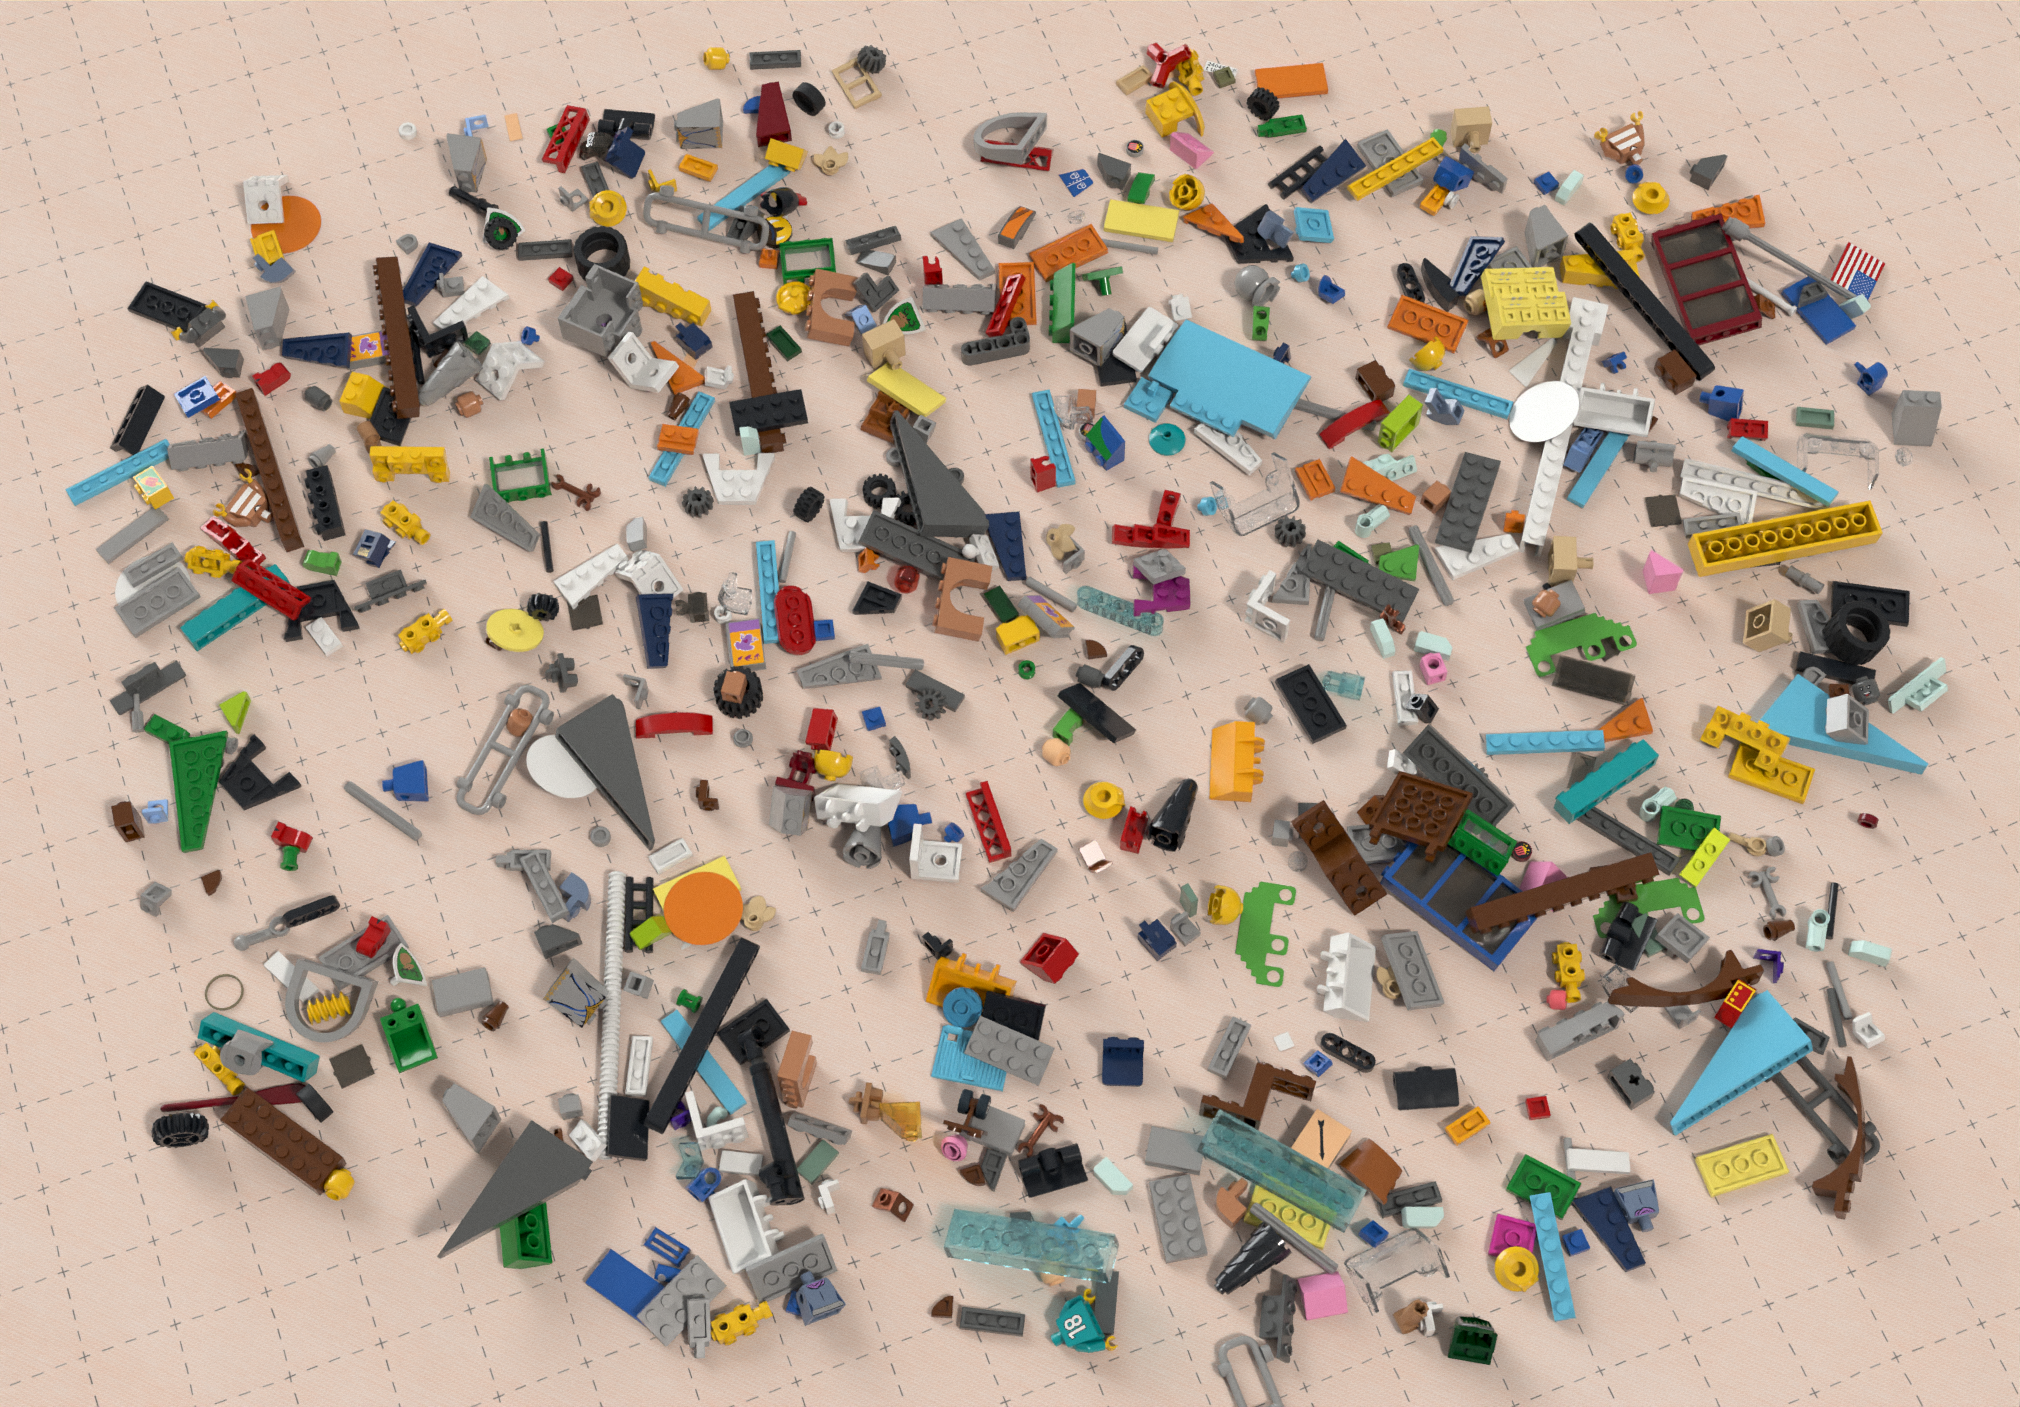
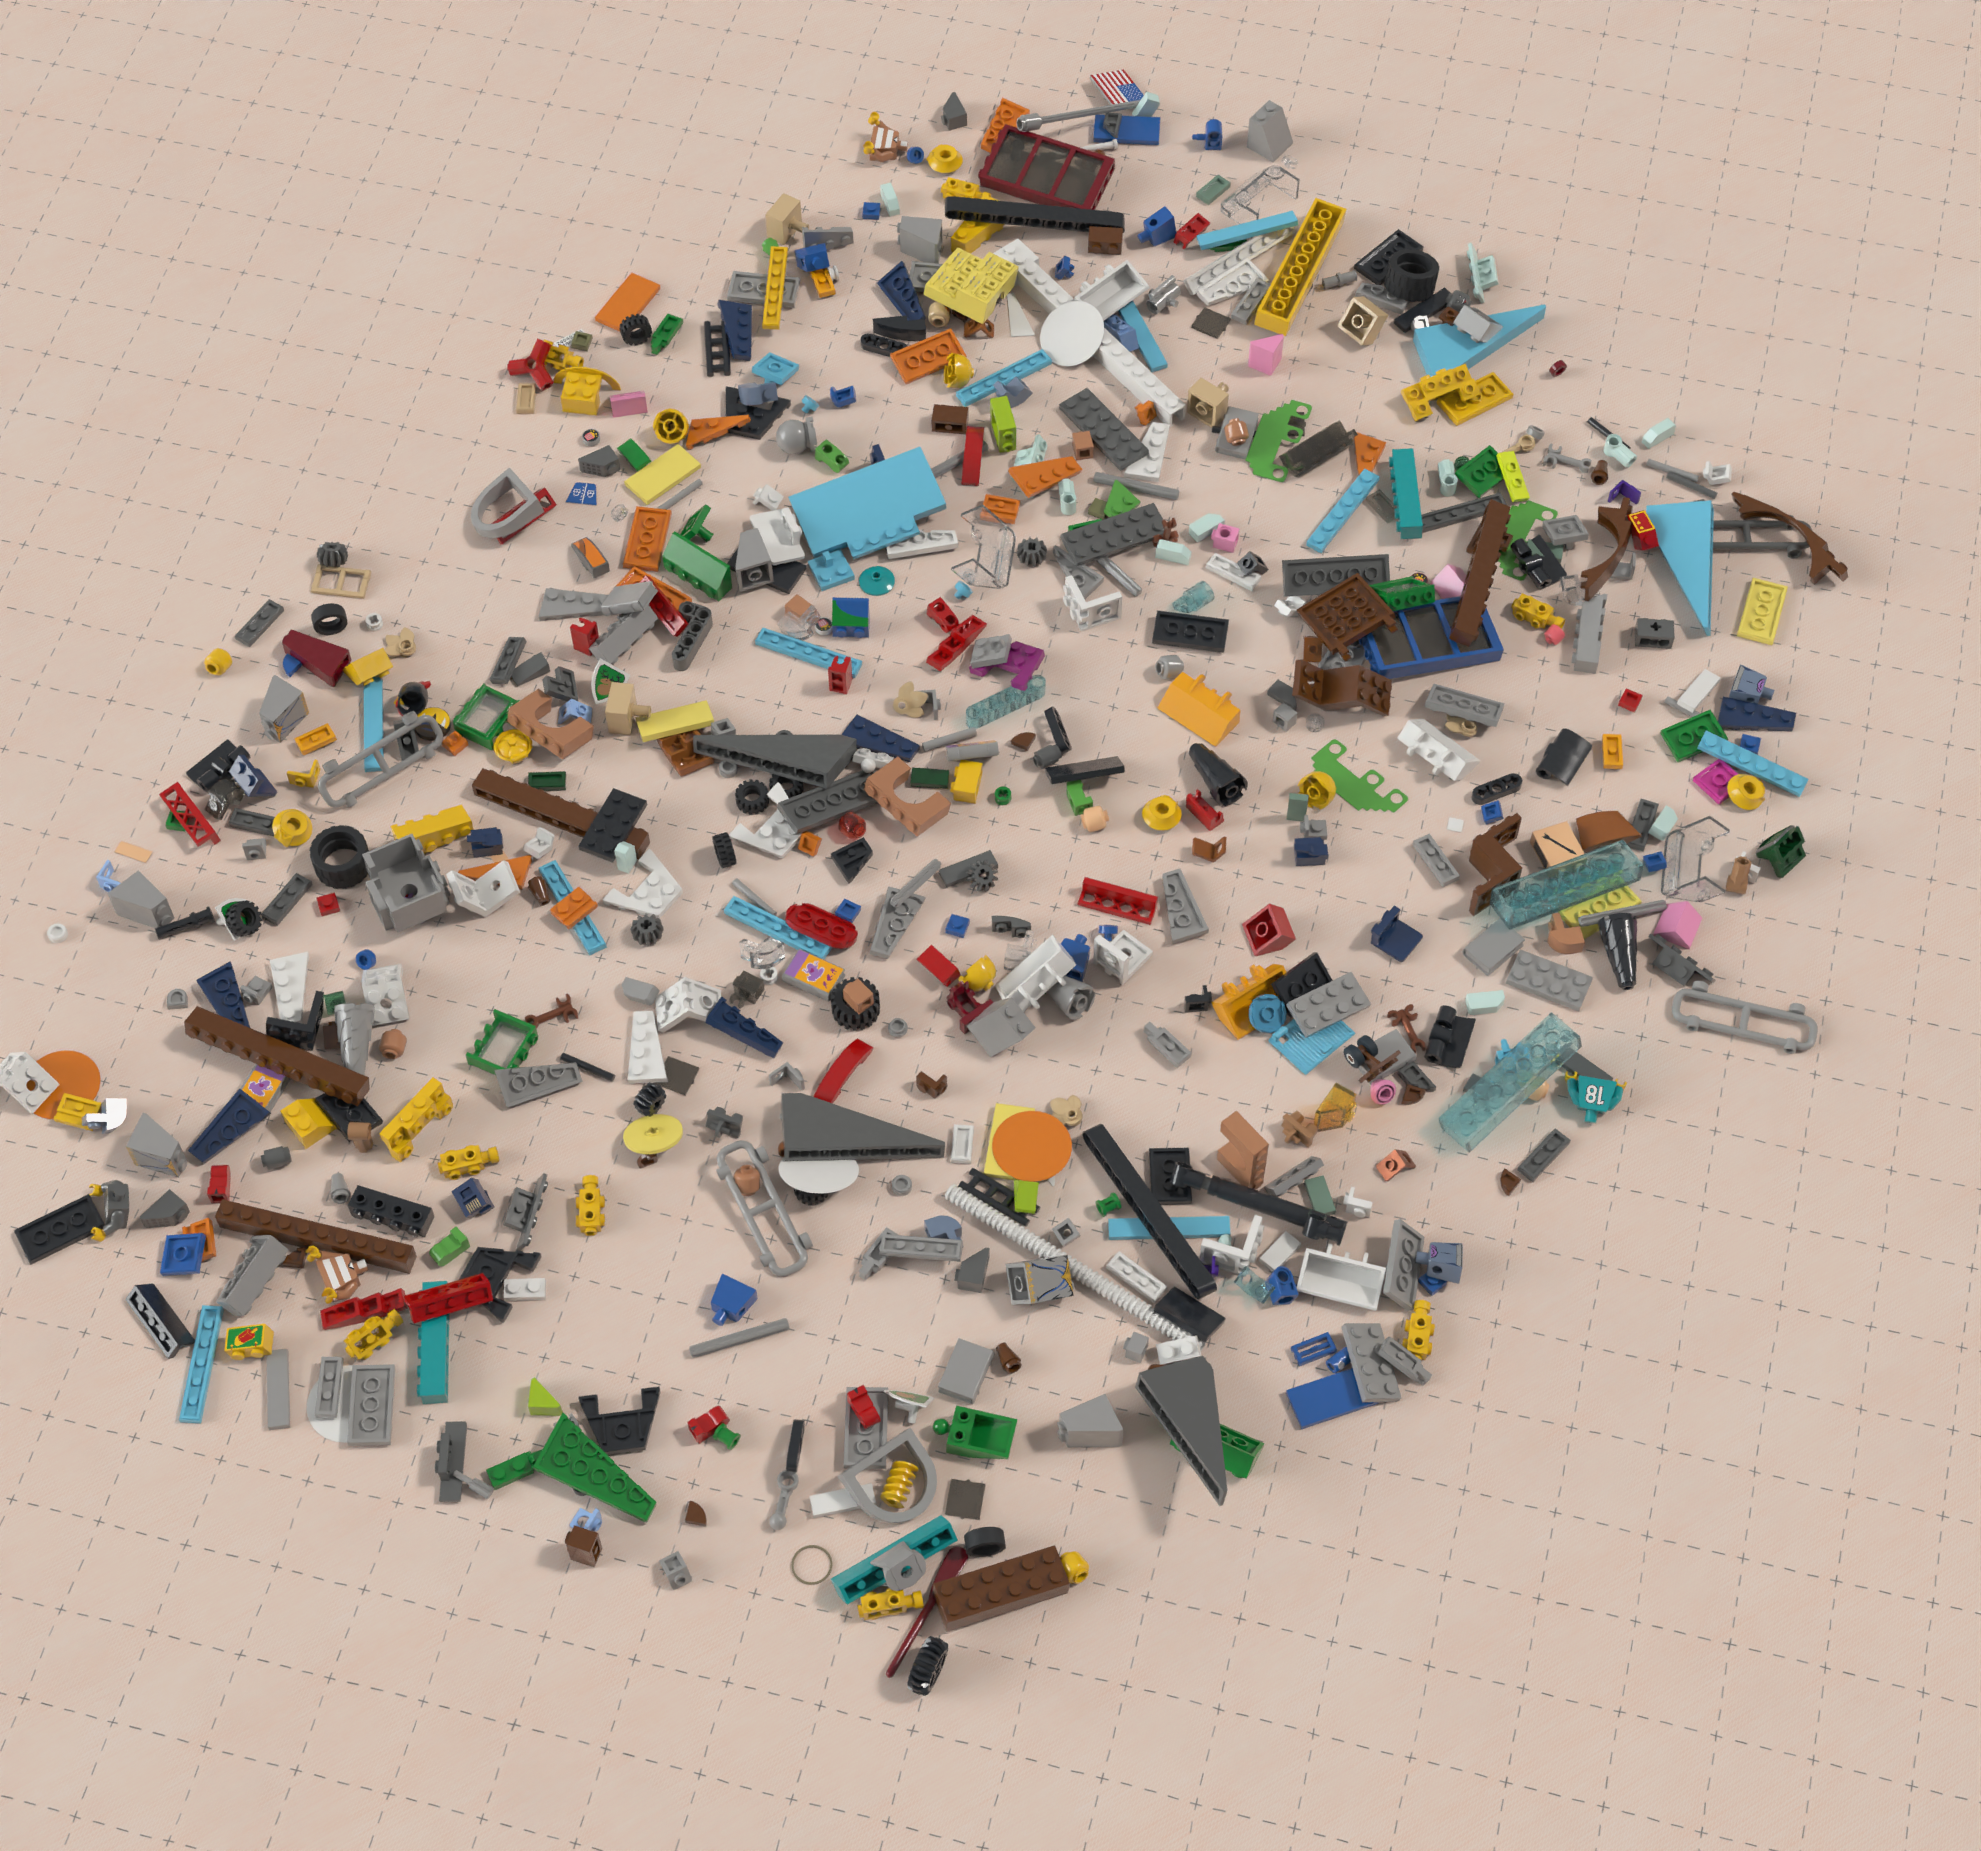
camera: 55 degrees left, 5 degrees down
(989, 277) = (628, 598): none -> light grey piece

